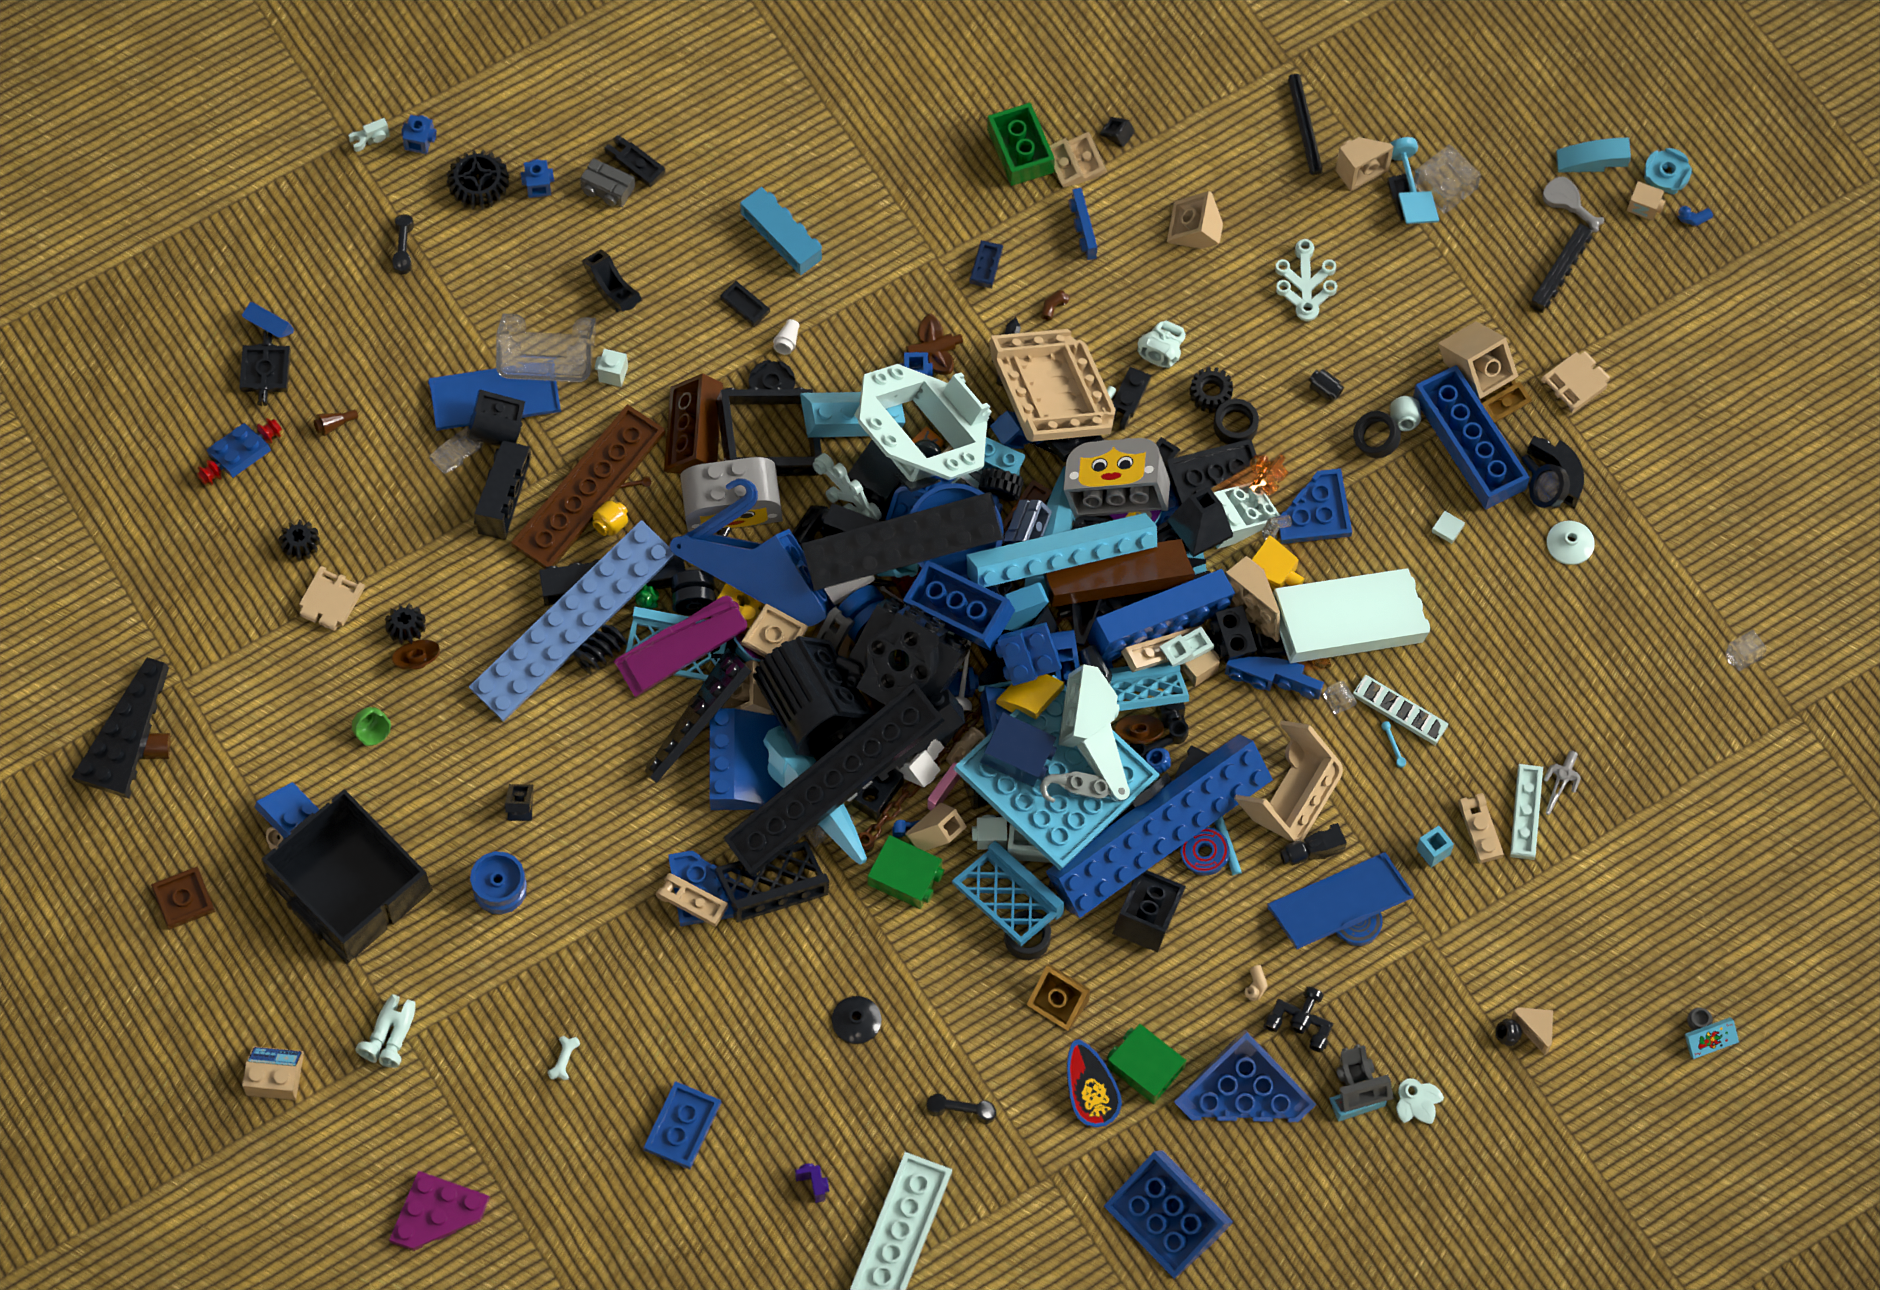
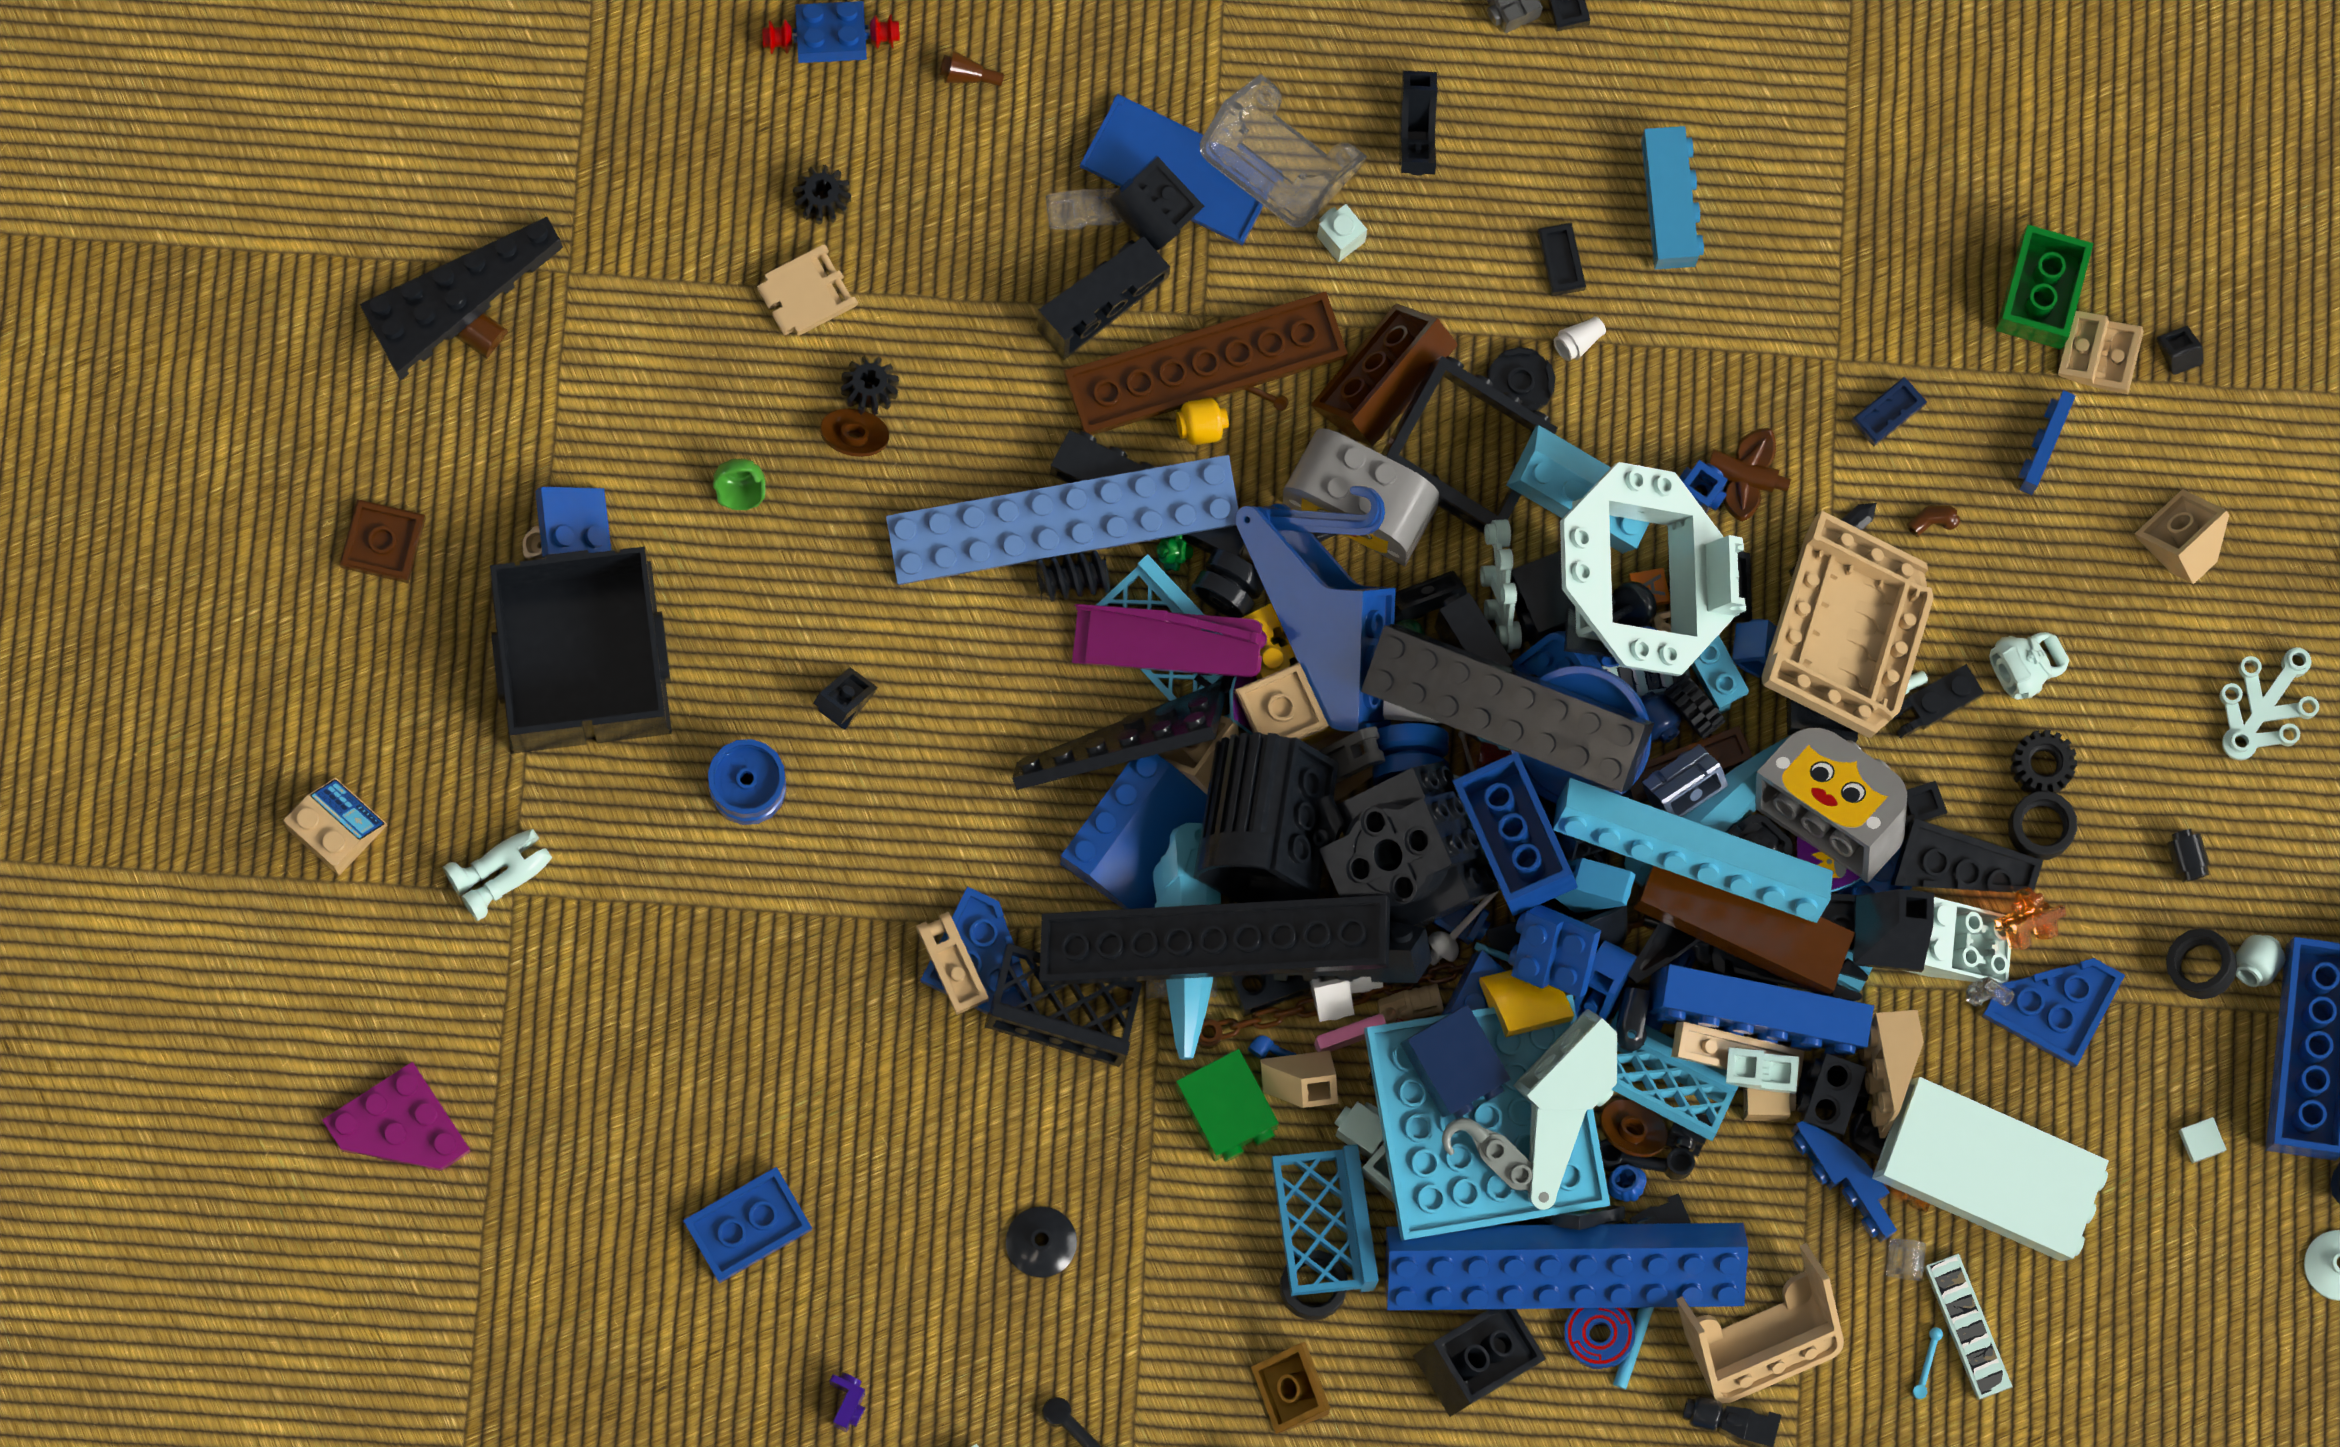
camera: 30 degrees right, 10 degrees up
(559, 1070) = (687, 1035): light aqua piece -> none
(1278, 564) = (1951, 1042): yellow torso -> none

